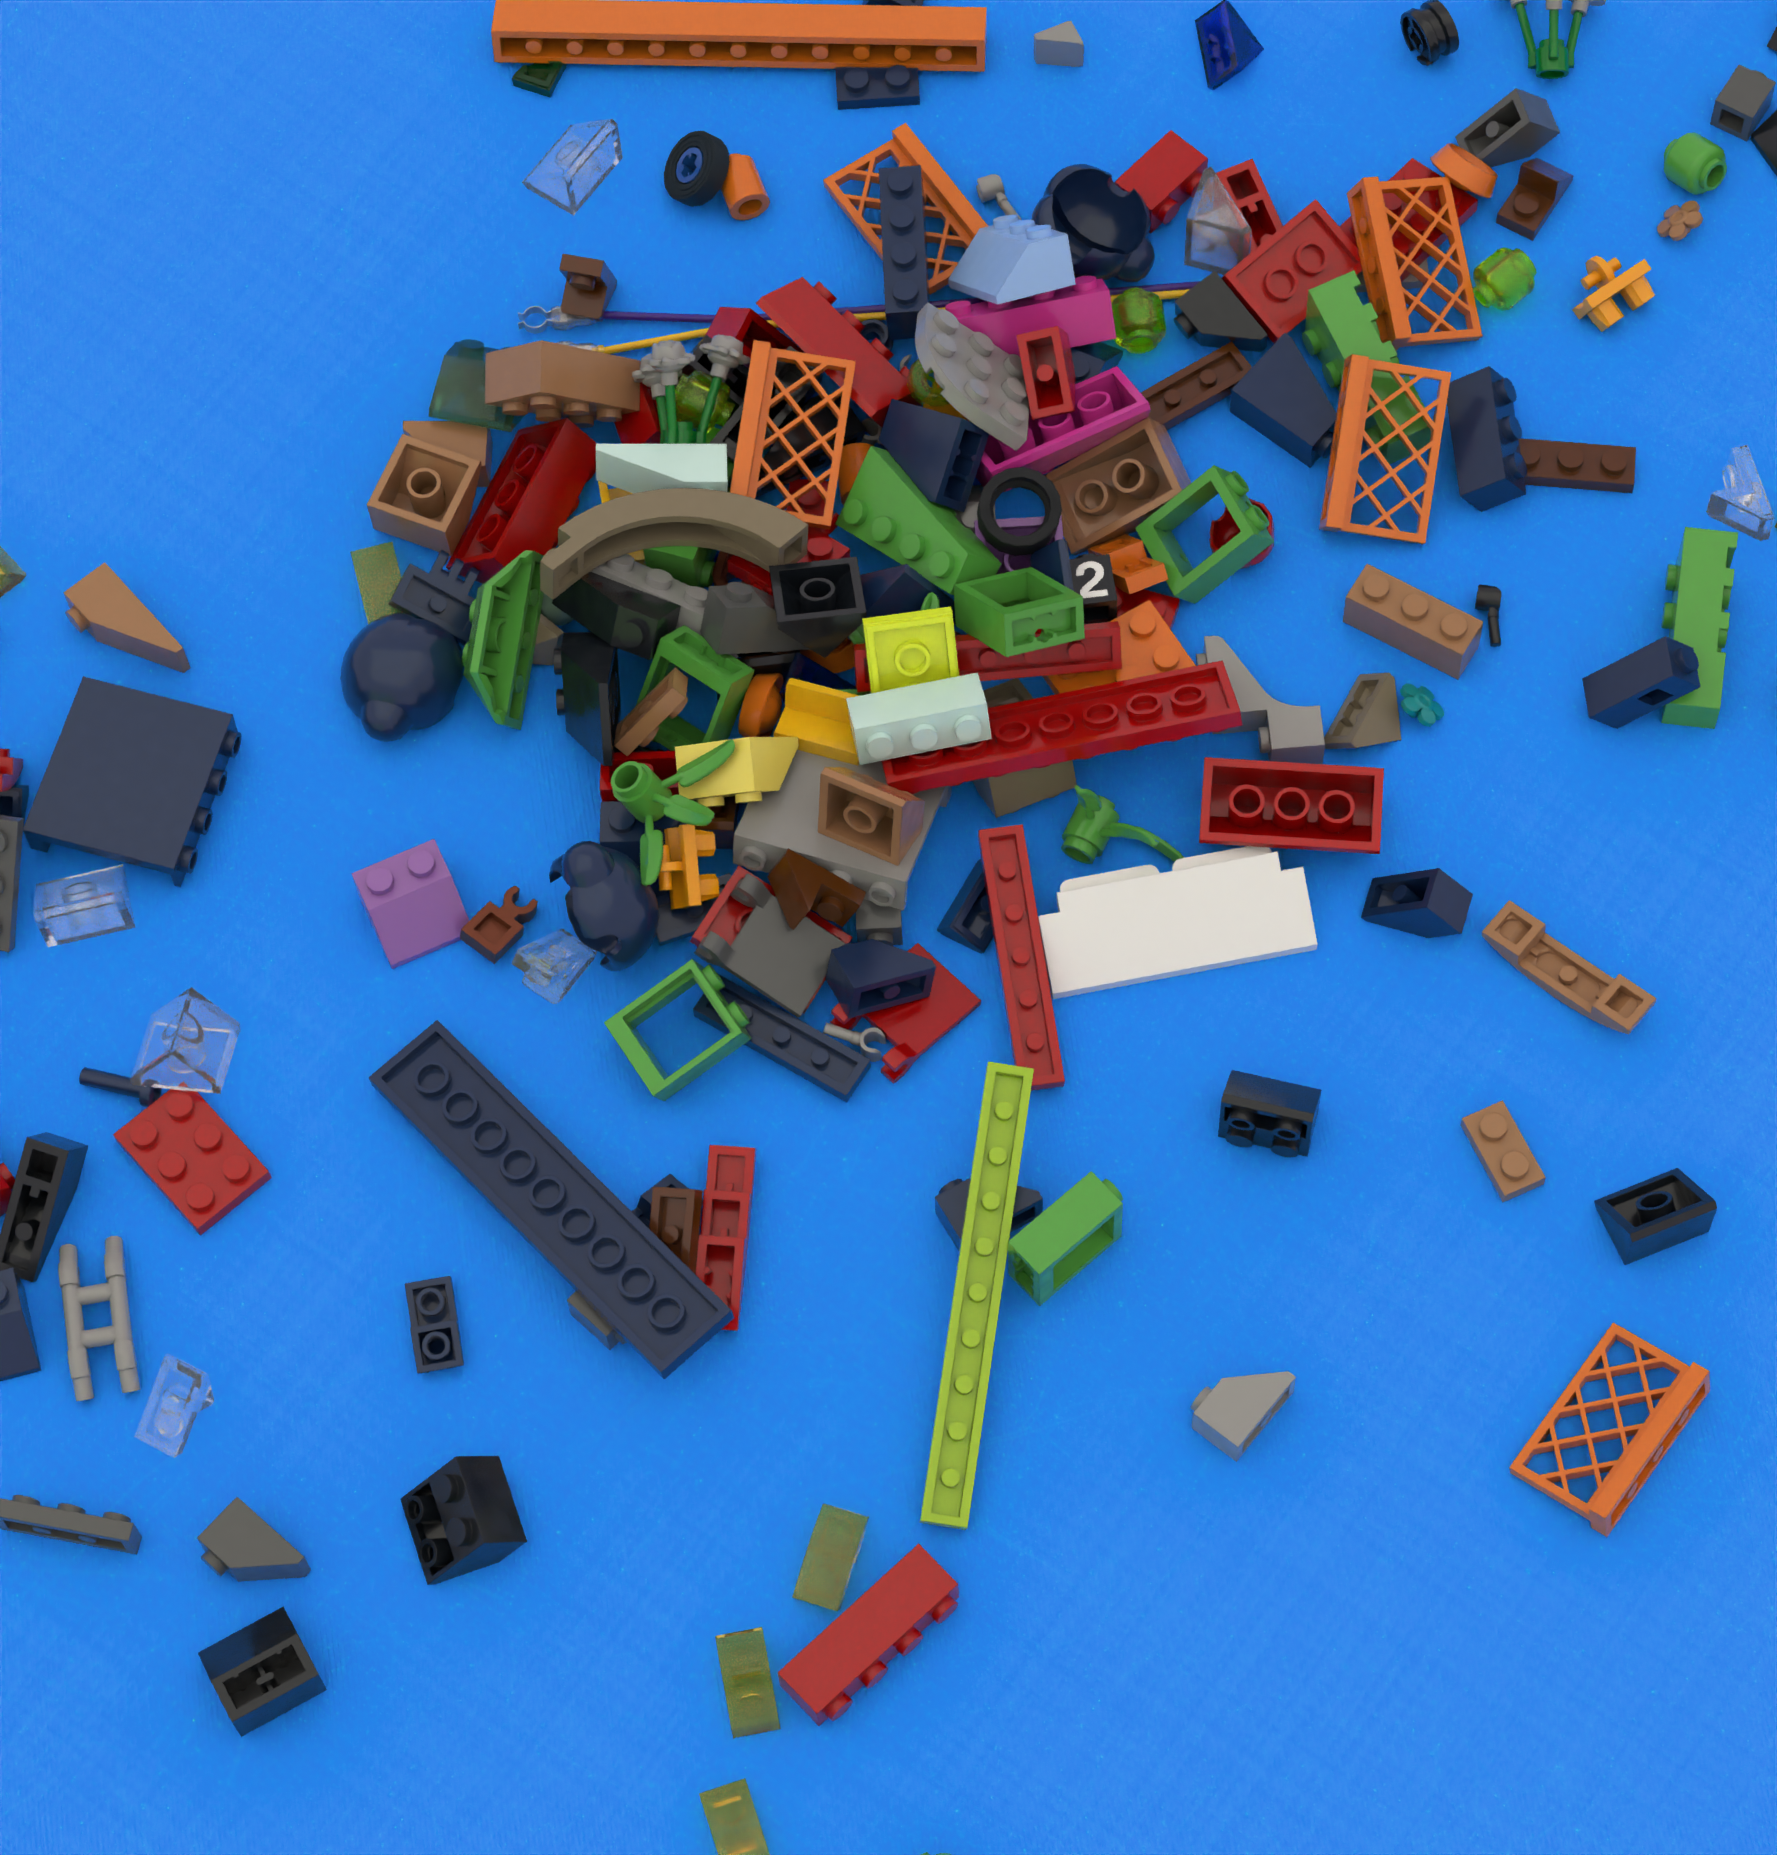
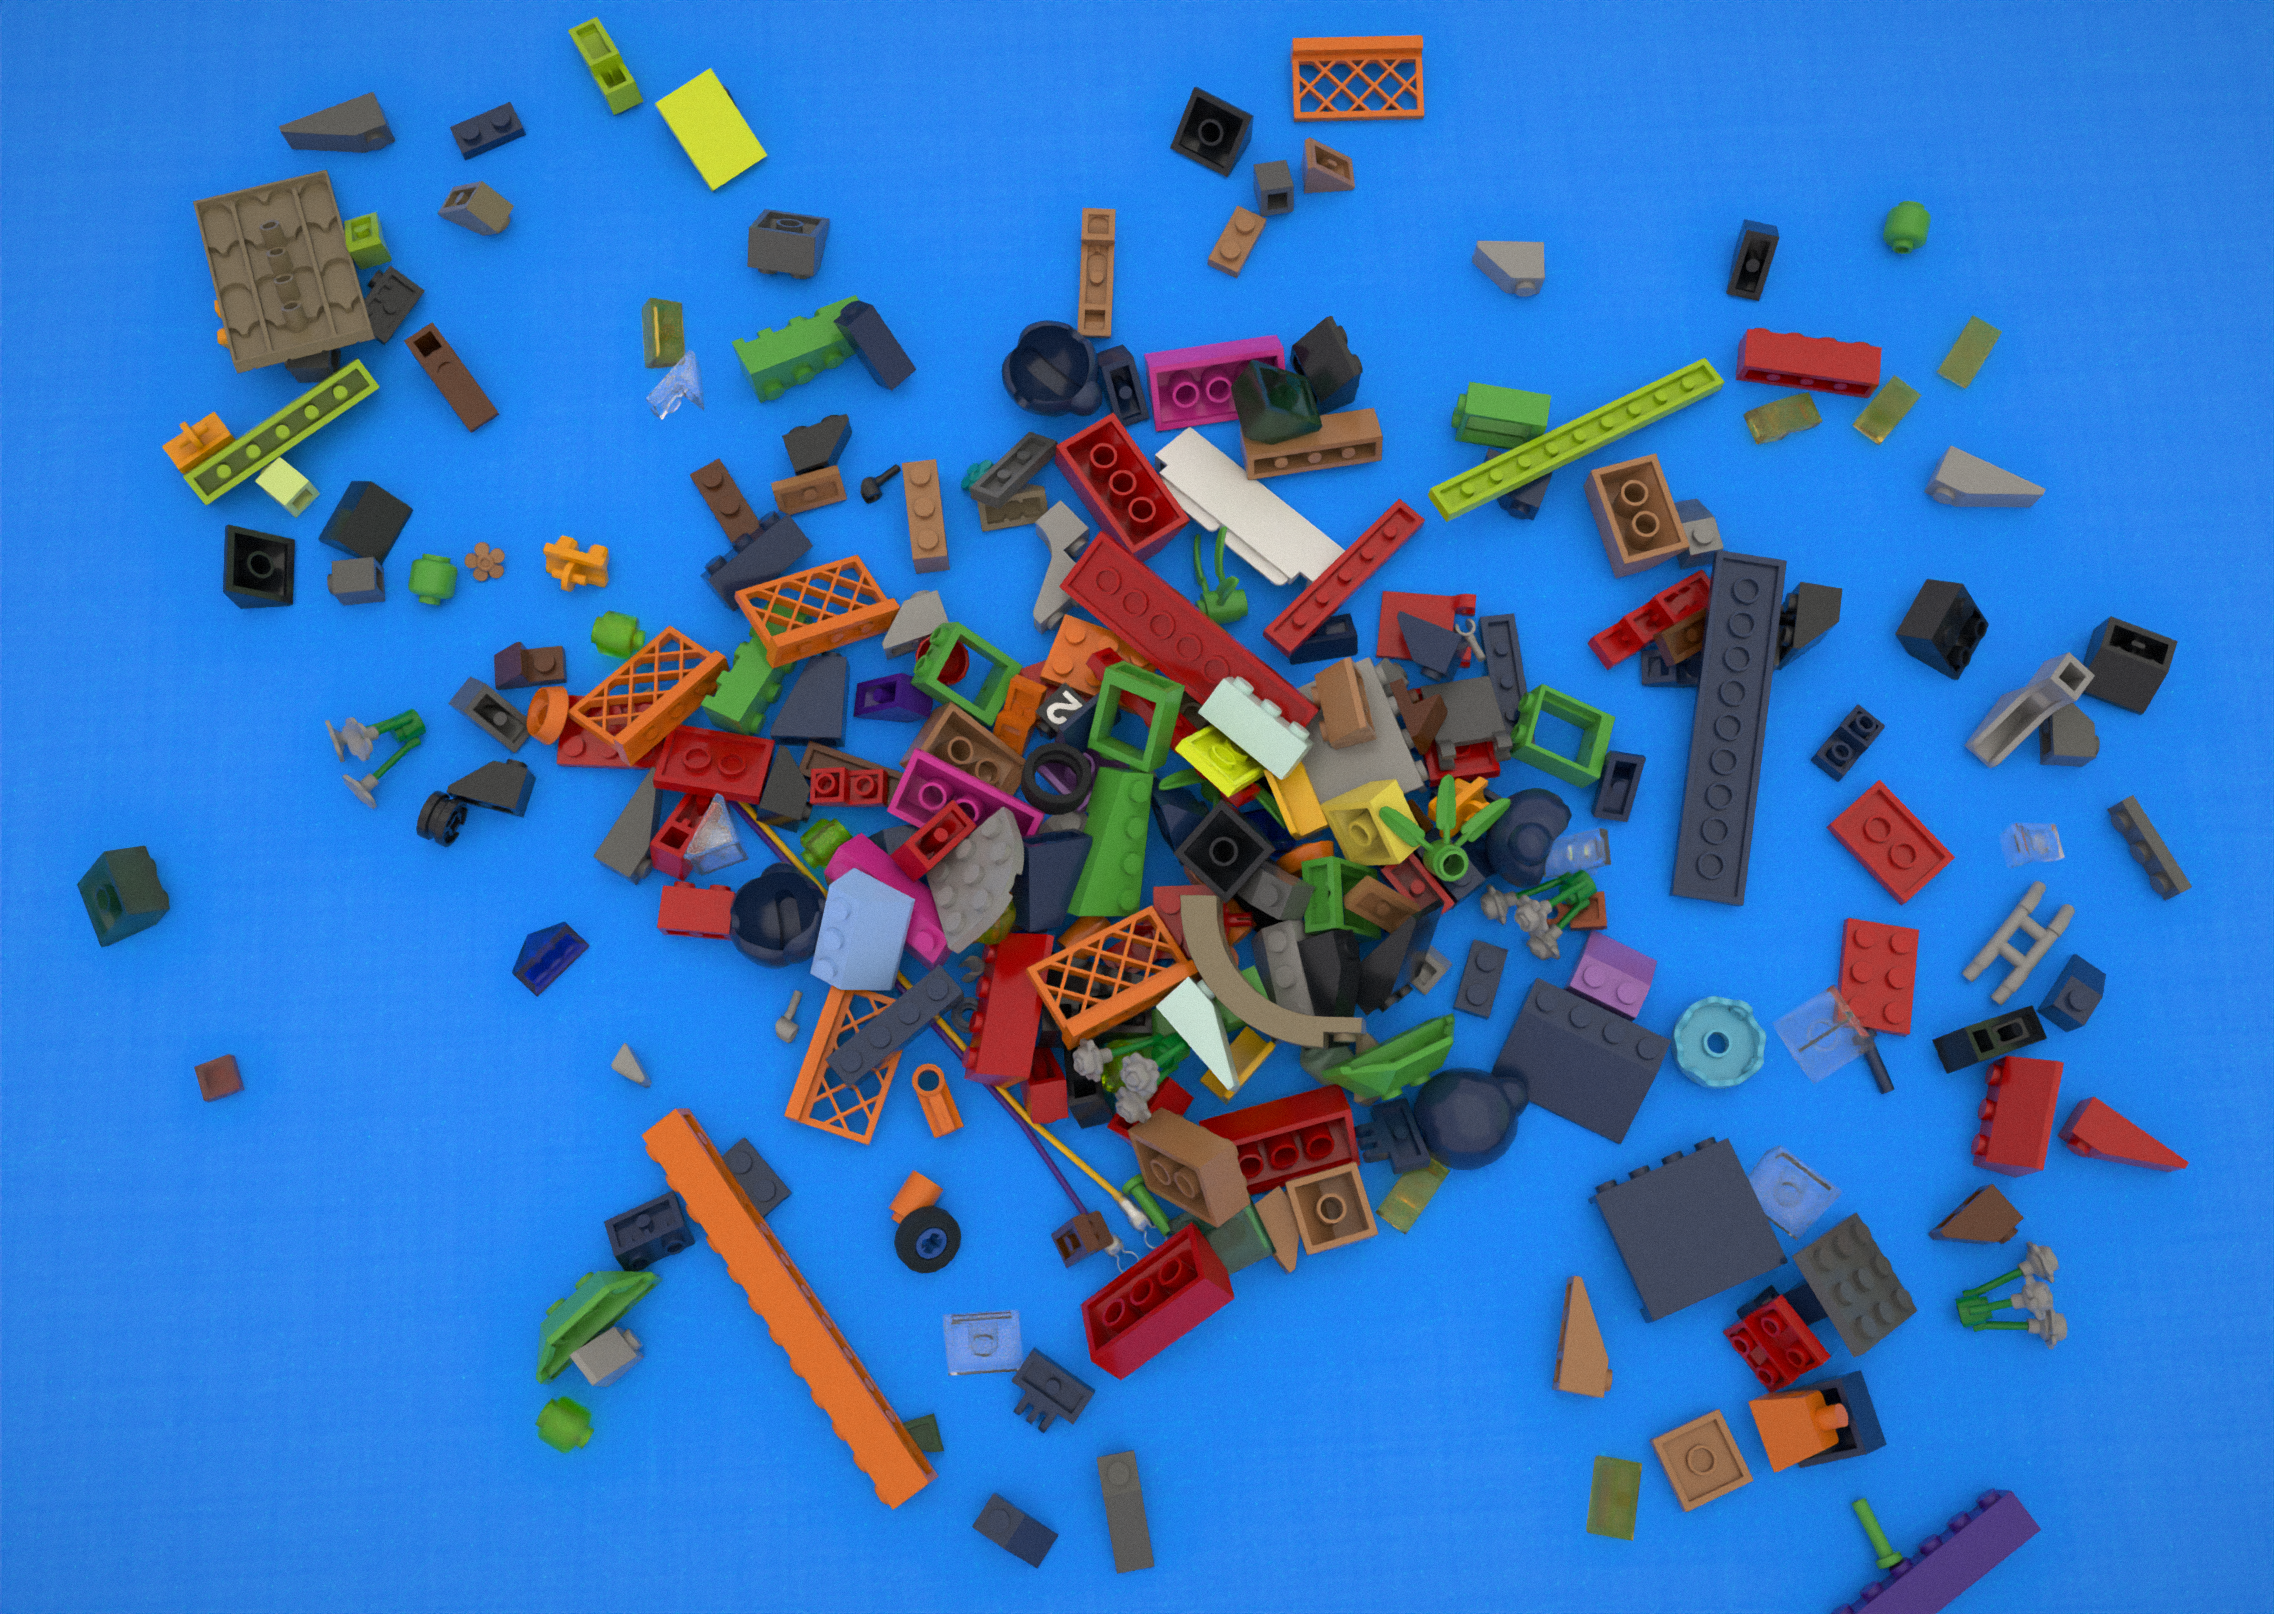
camera: 135 degrees left, 10 degrees up
(262, 919) = (1742, 1038): none -> medium azure plate
(302, 1275) = (1890, 842): none -> red plate
(306, 1506) = (2023, 710): none -> light grey arch
(341, 177) = (1125, 1511): none -> dark grey slope
(365, 815) = (1580, 1059): none -> dark blue slope
(399, 83) = (1015, 1530): none -> dark blue slope
(475, 290) = (1155, 1302): none -> red slope
(484, 185) = (1050, 1390): none -> dark blue hinge
(516, 794) = (1480, 979): none -> dark blue plate
(519, 922) = (1533, 914): none -> light grey plant
(569, 760) = (1433, 969): none -> light grey slope
(586, 1363) = (1806, 619): none -> black slope
(587, 1050) = (1617, 785): none -> dark blue slope
(588, 1694) = (1972, 482): none -> light grey slope
(784, 1349) = (1701, 534): none -> flat silver slope
(816, 260) = (937, 1104): none -> orange piece
(848, 1287) = (1635, 515): none -> medium nougat slope
(1044, 1681) = (1752, 259): none -> black slope
(1177, 368) = (848, 788): none -> red slope
(1196, 1037) = (1342, 441): none -> medium nougat brick
(1247, 457) = (892, 700): none -> dark purple slope
(1258, 1009) = (1274, 404): none -> clear green slope
(1281, 168) = (627, 844): none -> dark grey slope
(1300, 543) = (914, 623): none -> light grey slope
(1346, 1000) = (1195, 382): none -> dark pink slope
(1395, 728) = (1013, 470): none -> dark grey plate
(1423, 95) = (497, 787): none -> black slope
(1473, 829) = (1053, 371): none -> dark blue piece
(1518, 1300) = (1325, 169): none -> medium nougat slope
(1528, 538) = (809, 490): none -> medium nougat plate
(1535, 1222) = (1273, 188): none -> dark grey brick
(1570, 572) = (818, 444): none -> black slope

